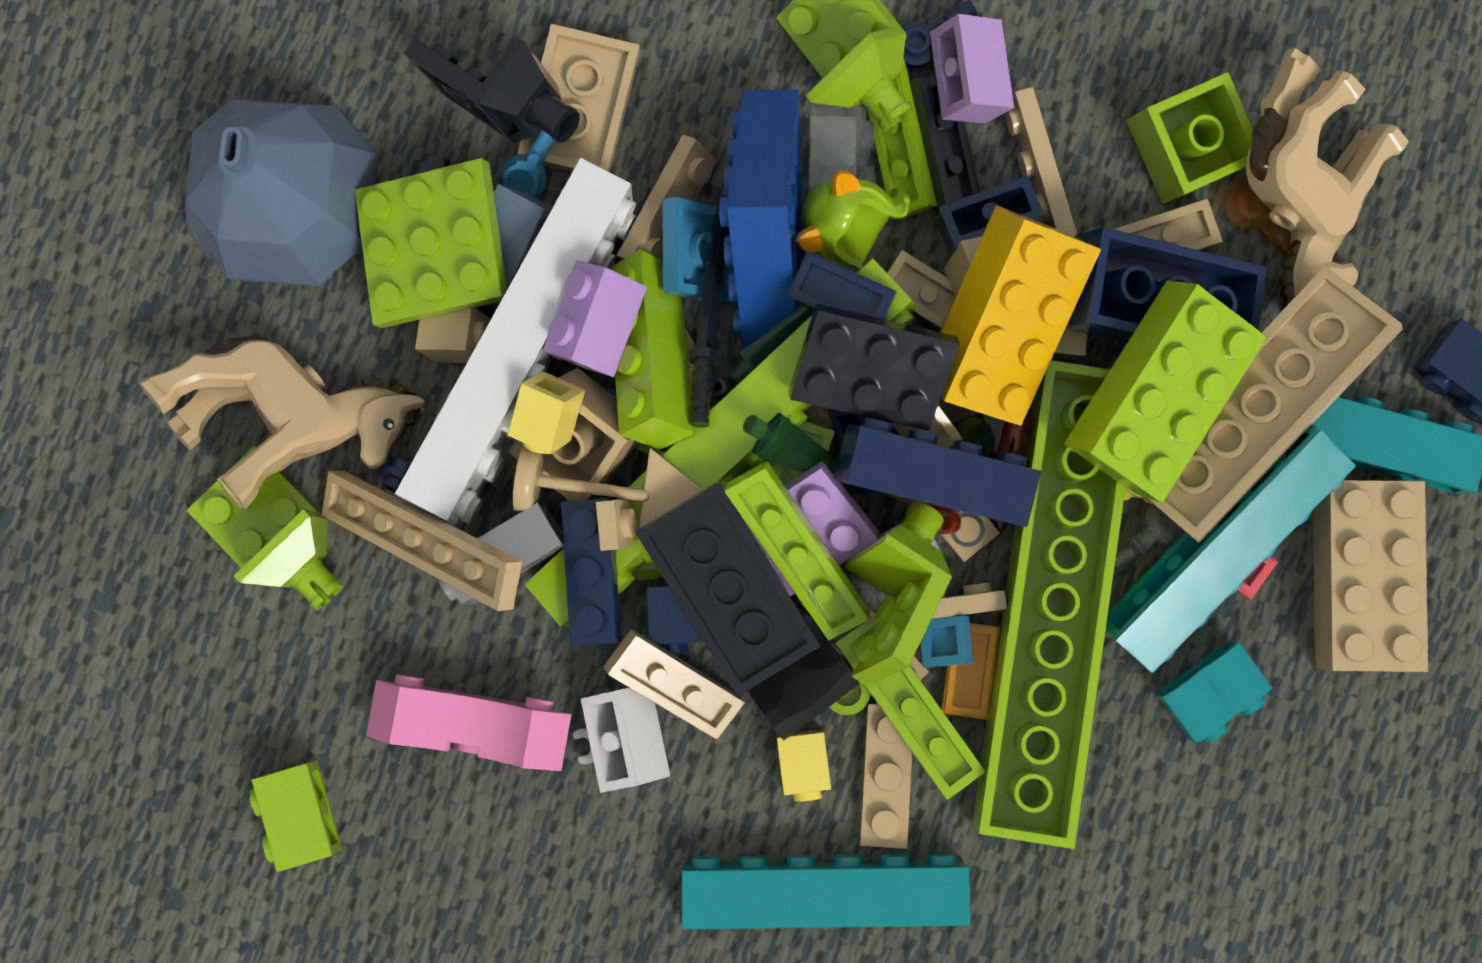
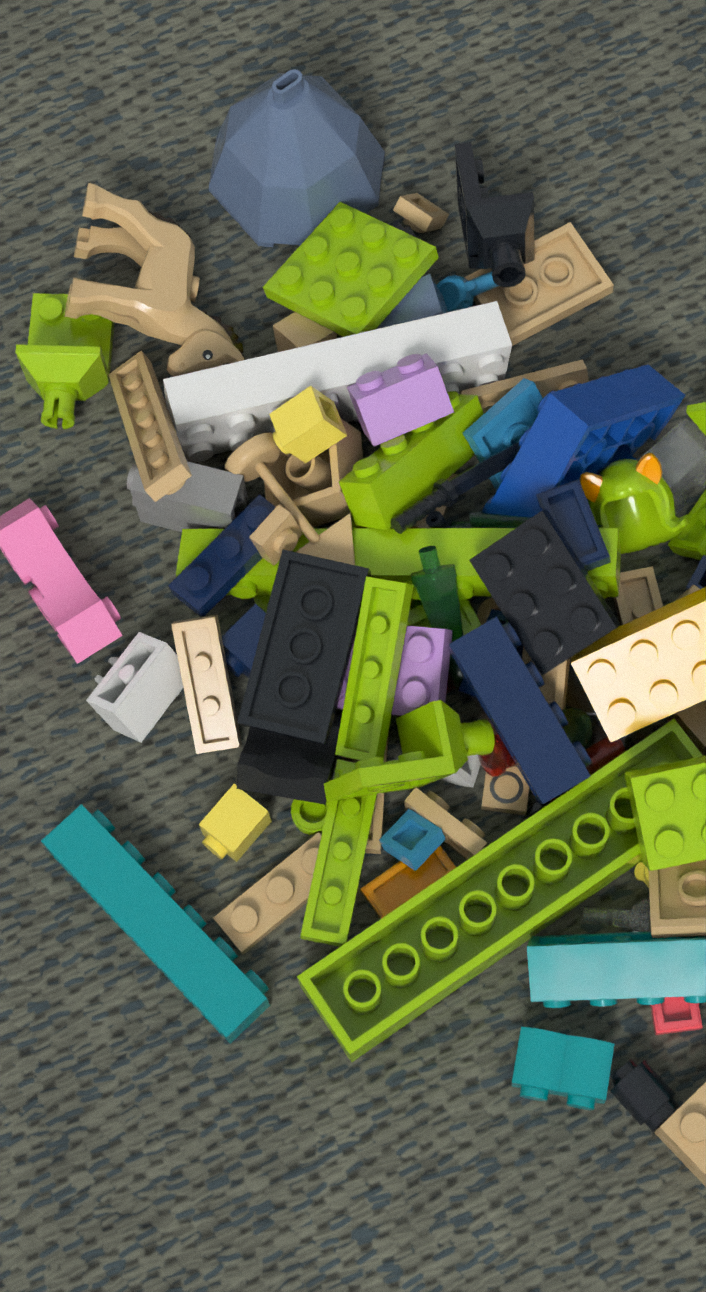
camera: 50 degrees right, 15 degrees down
(423, 132) = (420, 213): none -> tan plate
(1288, 652) = (644, 1094): none -> black brick

